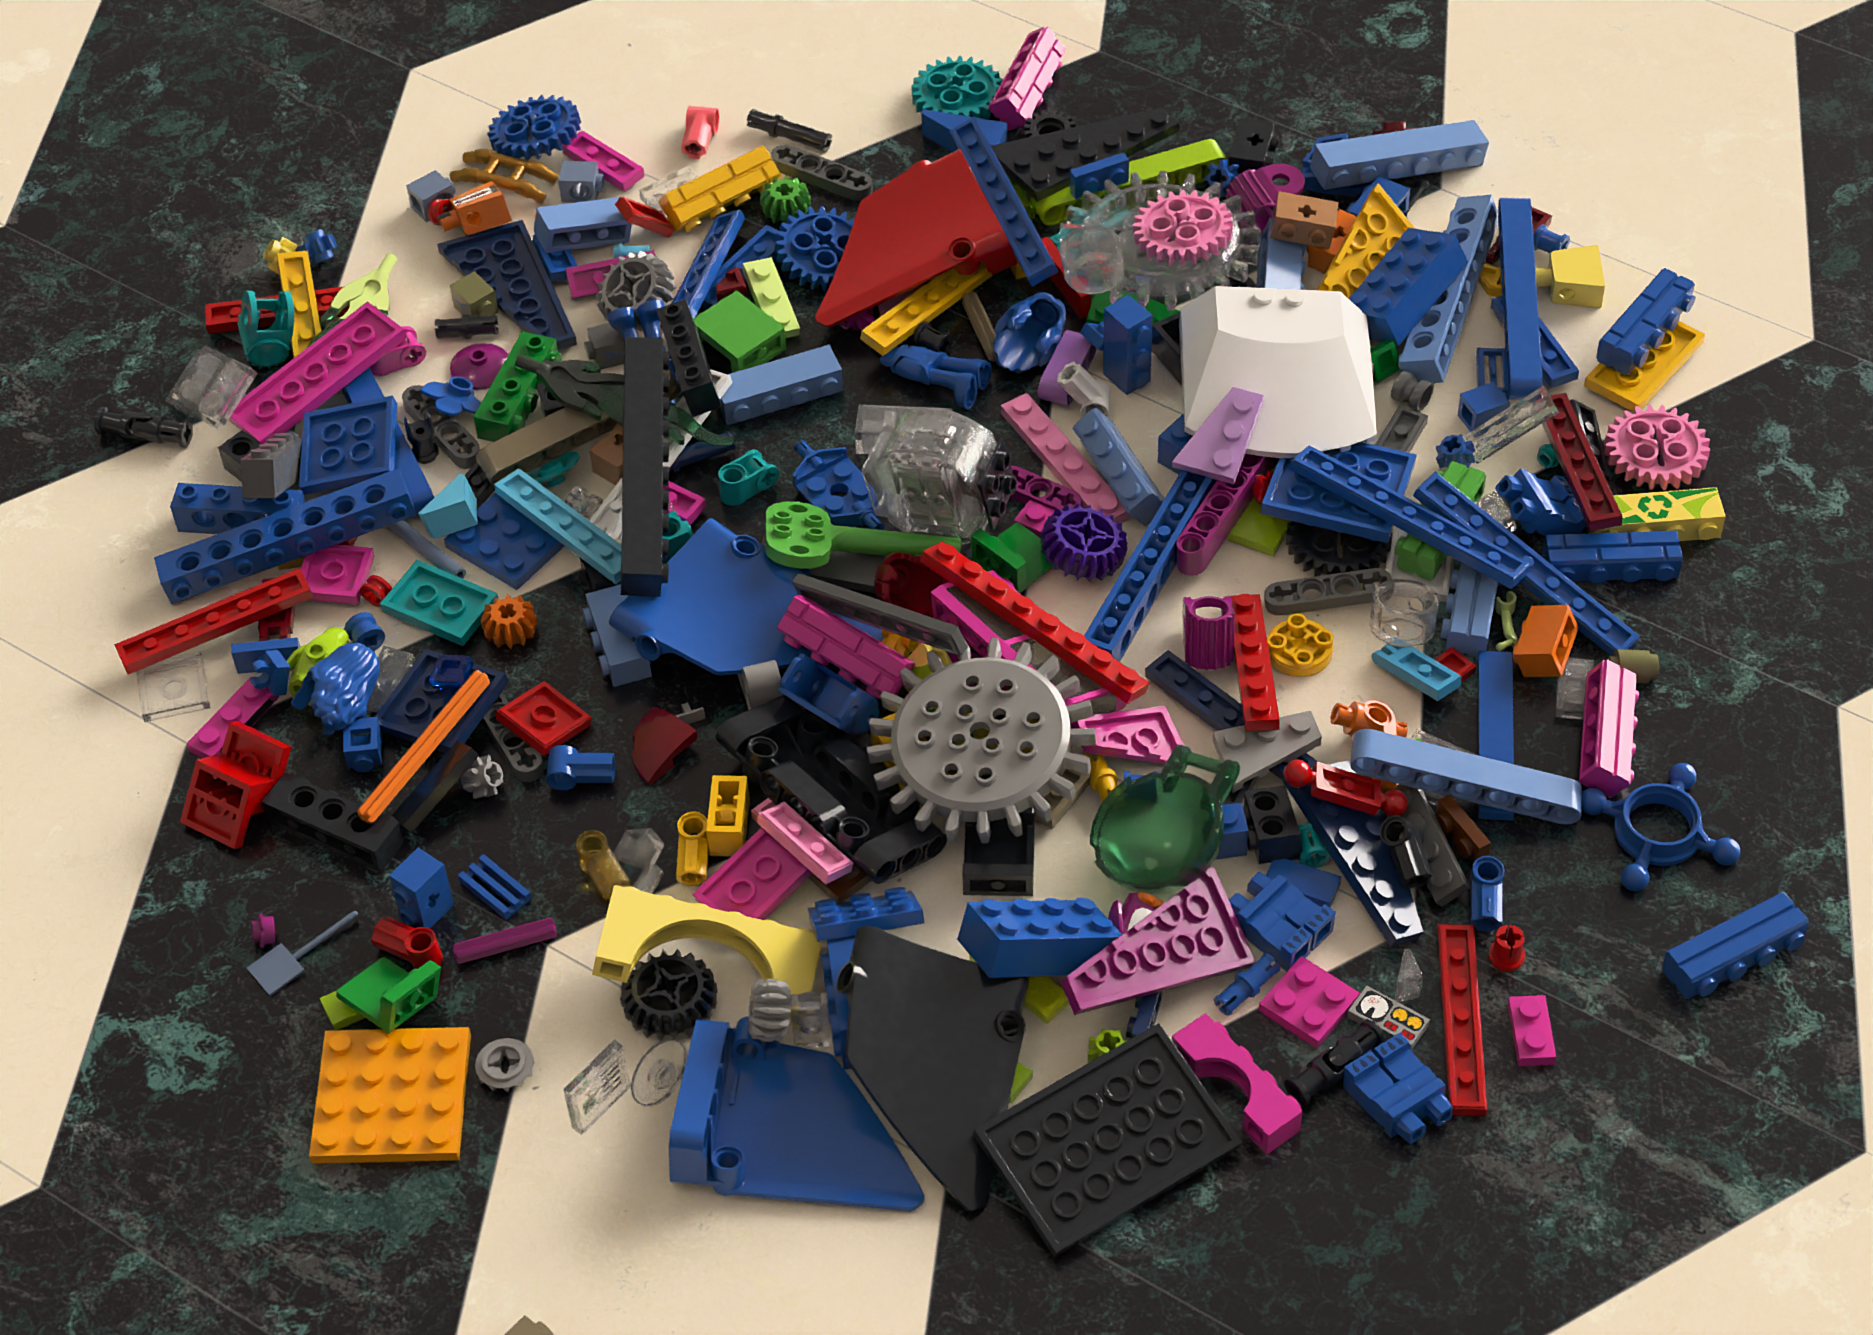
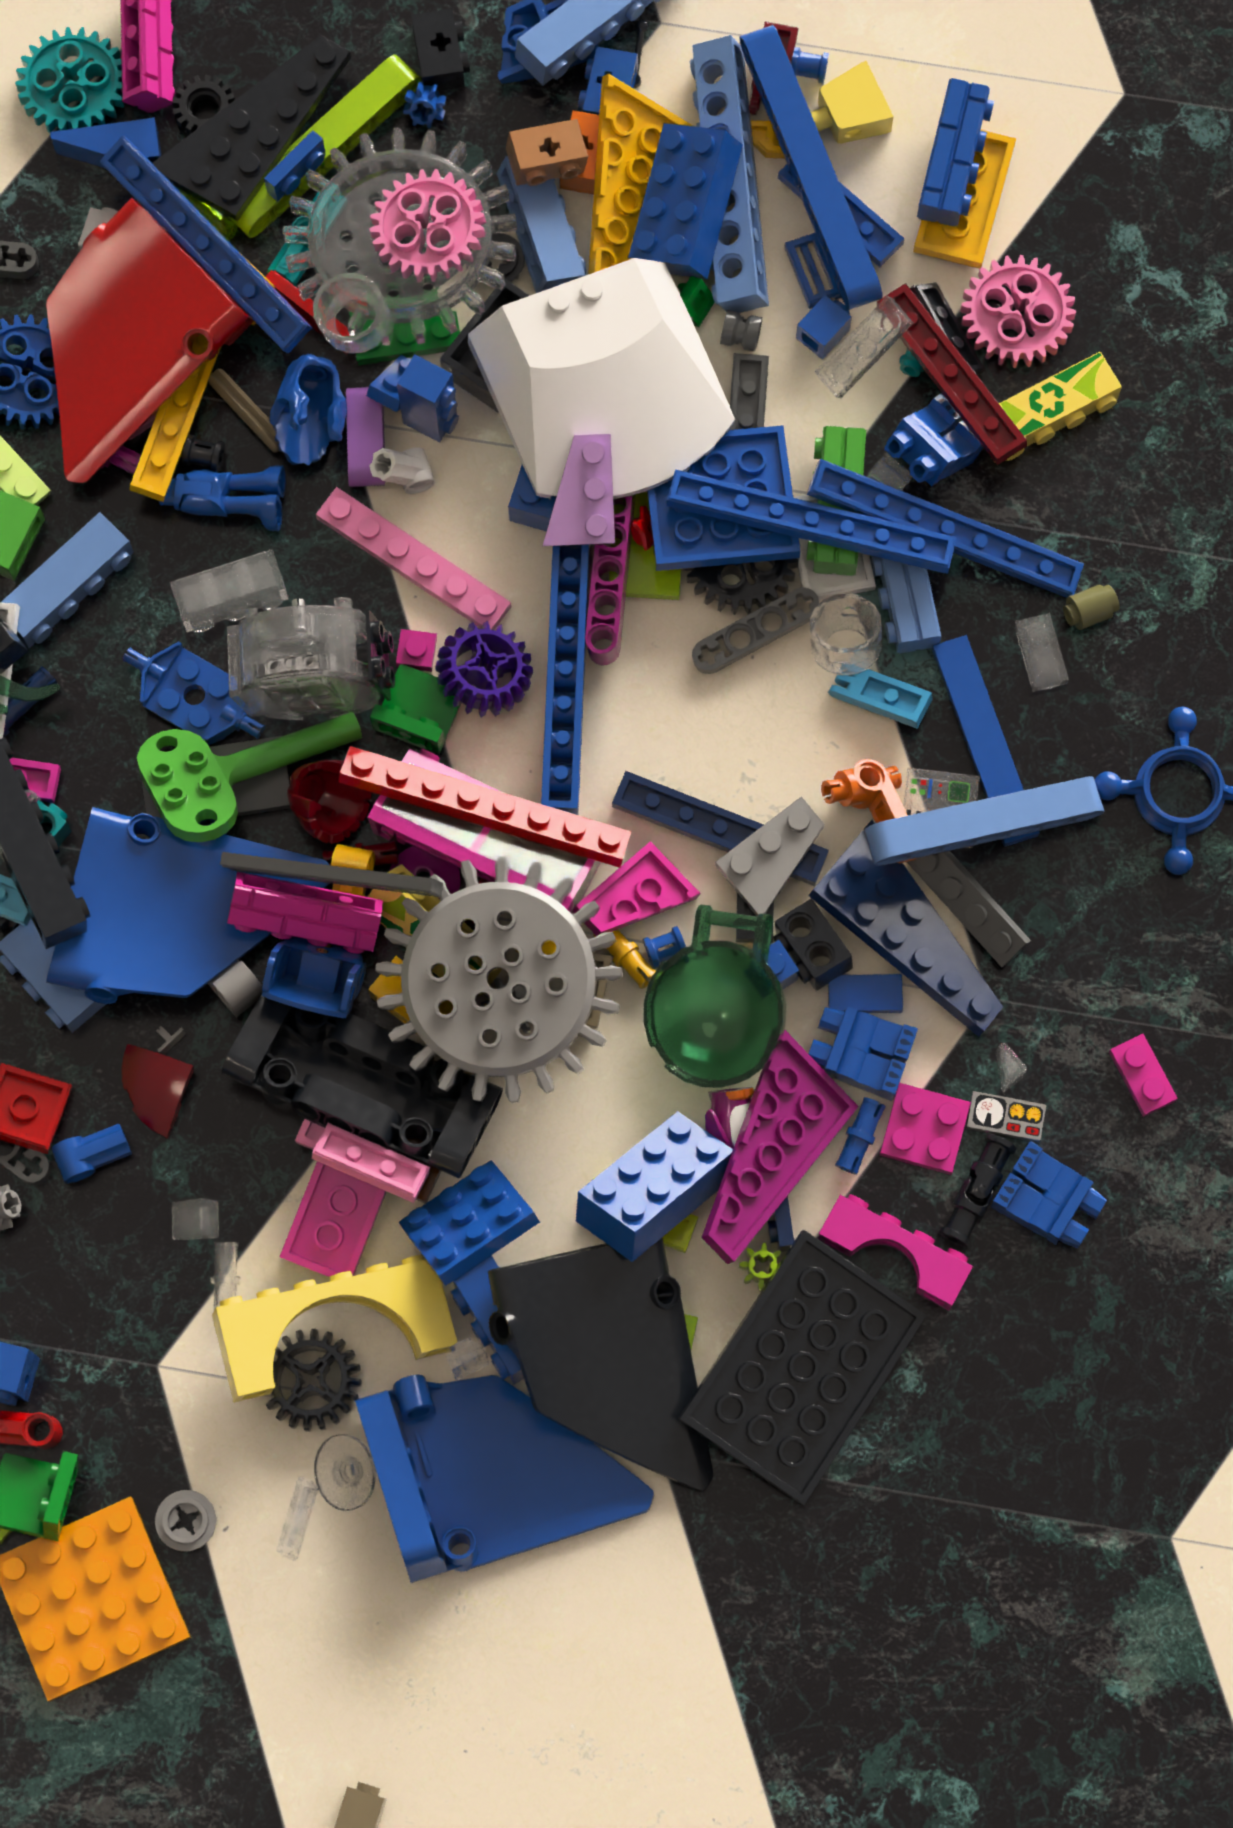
camera: 25 degrees left, 25 degrees up
(498, 873) = (43, 1313): blue tile -> none
(504, 940) = (114, 1382): magenta axle -> none
(600, 866) = (175, 1262): clear yellow piece -> none
(692, 849) = (256, 1207): yellow piece -> none
(727, 814) = (274, 1154): yellow brick -> none
(744, 478) = (89, 710): teal piece -> none
(769, 1010) = (429, 1375): light grey gear -> none
(1004, 863) = (574, 1097): black panel -> none
(1031, 482) = (433, 608): magenta beam -> none
(1119, 466) = (480, 554): medium blue brick -> none
(1205, 640) = (667, 758): magenta piece -> none
(1254, 665) = (719, 757): red plate -> none
(1259, 191) = (484, 116): magenta piece -> none
(1300, 646) = (752, 708): yellow tile -> none
(1317, 848) = (861, 963): teal bush -> none
(1345, 788) = (876, 886): red plate -> none
(1407, 852) = (962, 931): black piece -> none
(1455, 449) = (811, 395): blue gear -> none
(1457, 662) = (913, 670): red tile -> none
(1460, 828) = (1009, 884): reddish brown plate -> none
(1461, 1020) = (1073, 1088): red tile -> none
(1486, 894) = (1048, 945): blue piece -> none
(1505, 944) = (1086, 1005): red bush -> none
(1506, 609) = (949, 602): yellowish green piece -> none
(1545, 641) = (996, 612): orange brick -> none
(1608, 728) = (1095, 697): dark pink brick -> none
(1615, 555) = (1030, 472): blue brick -> none

